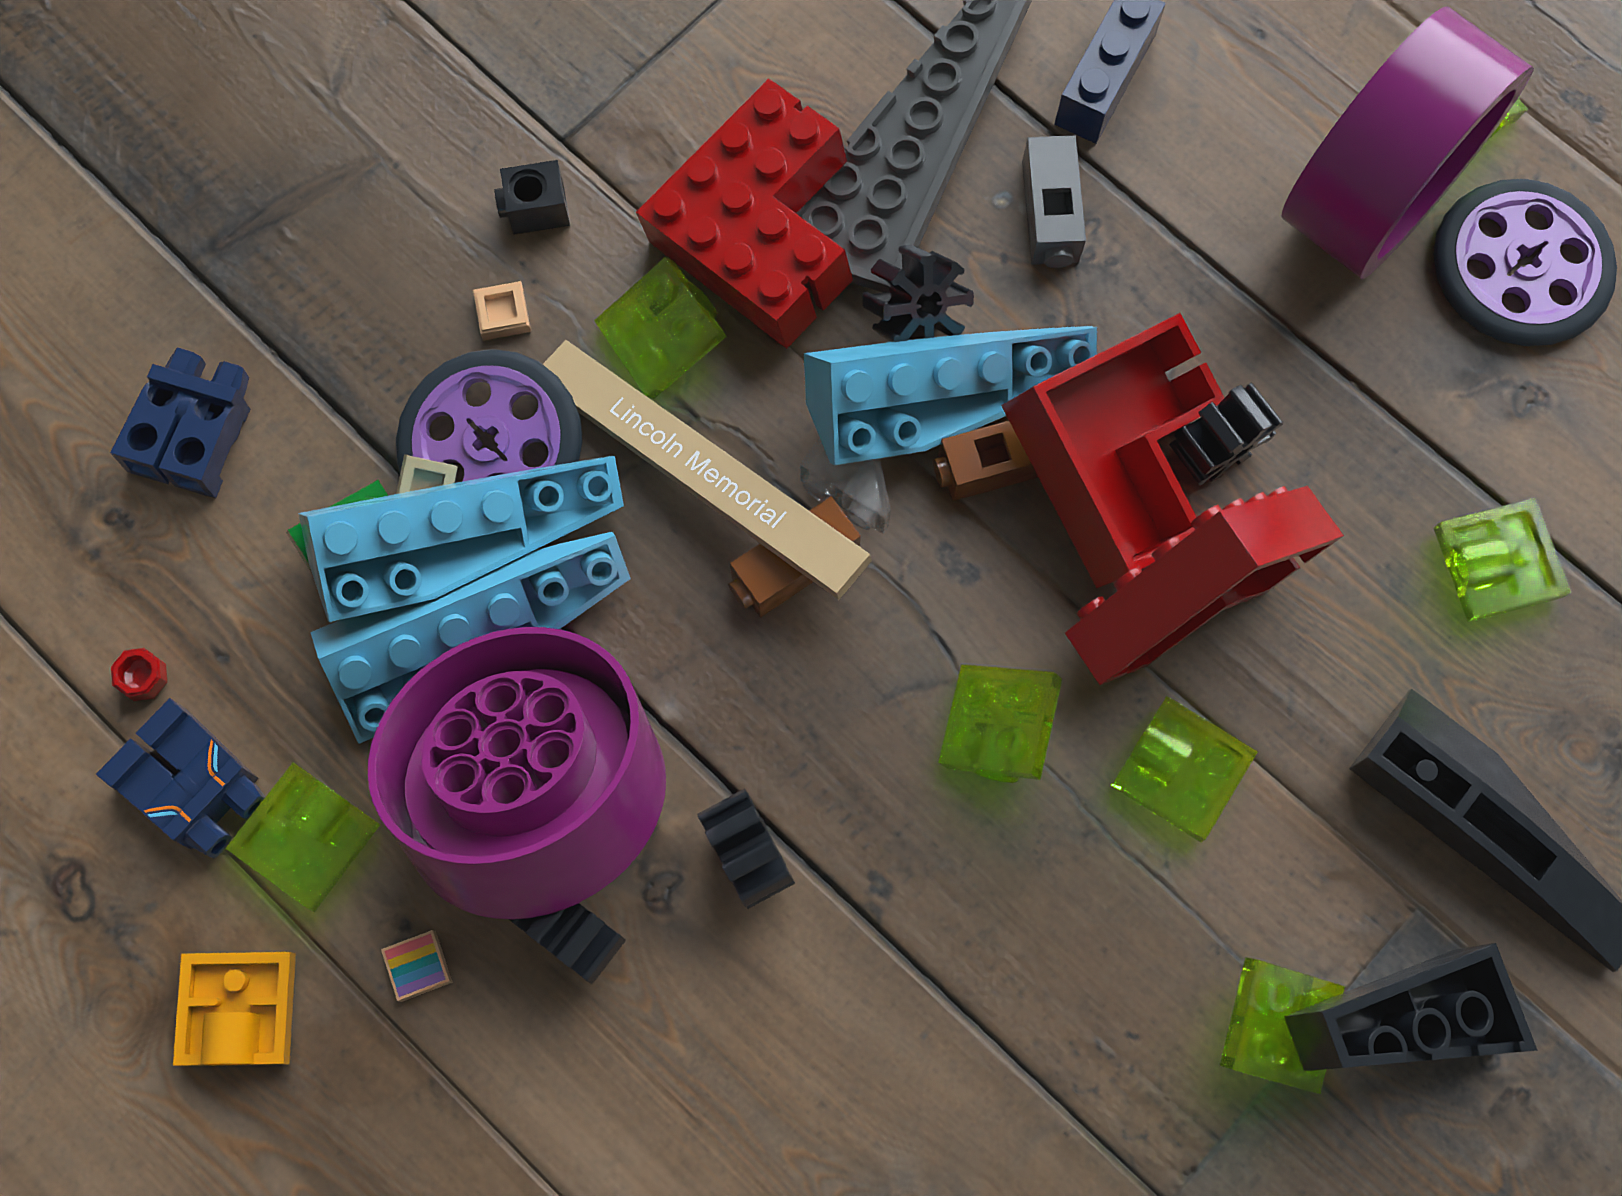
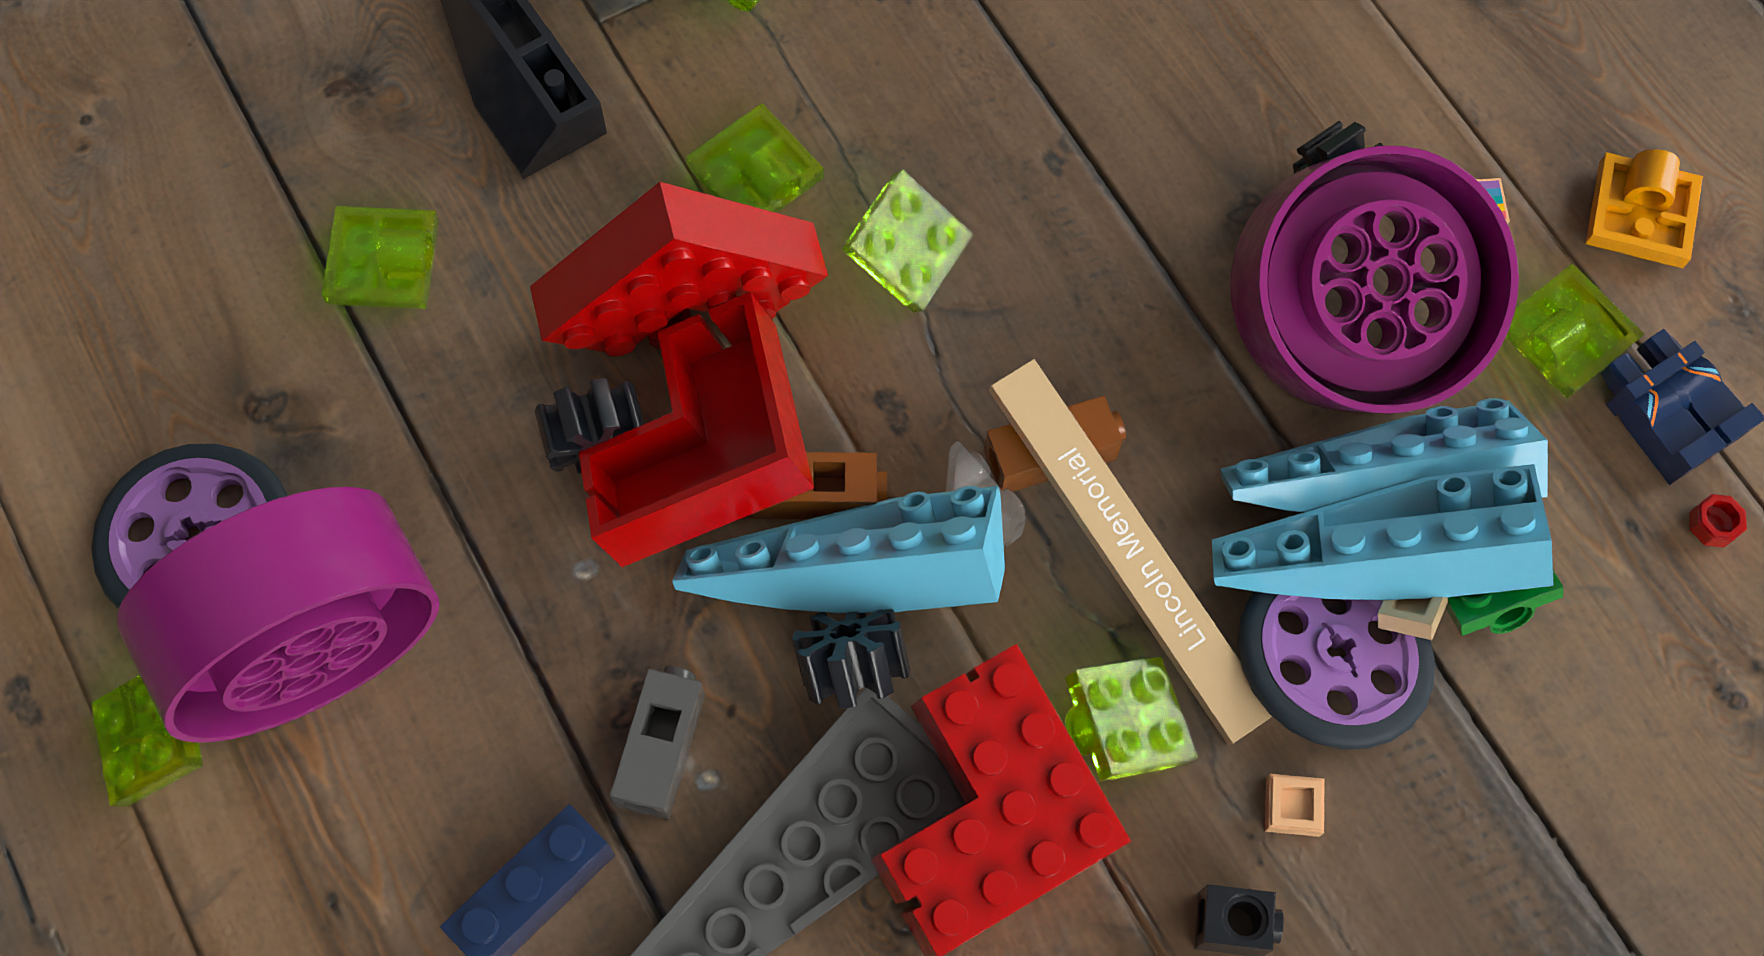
camera: 165 degrees left, 5 degrees down
(184, 424) = (1658, 762): dark blue hips -> none
(745, 849) = (1172, 194): black gear -> none

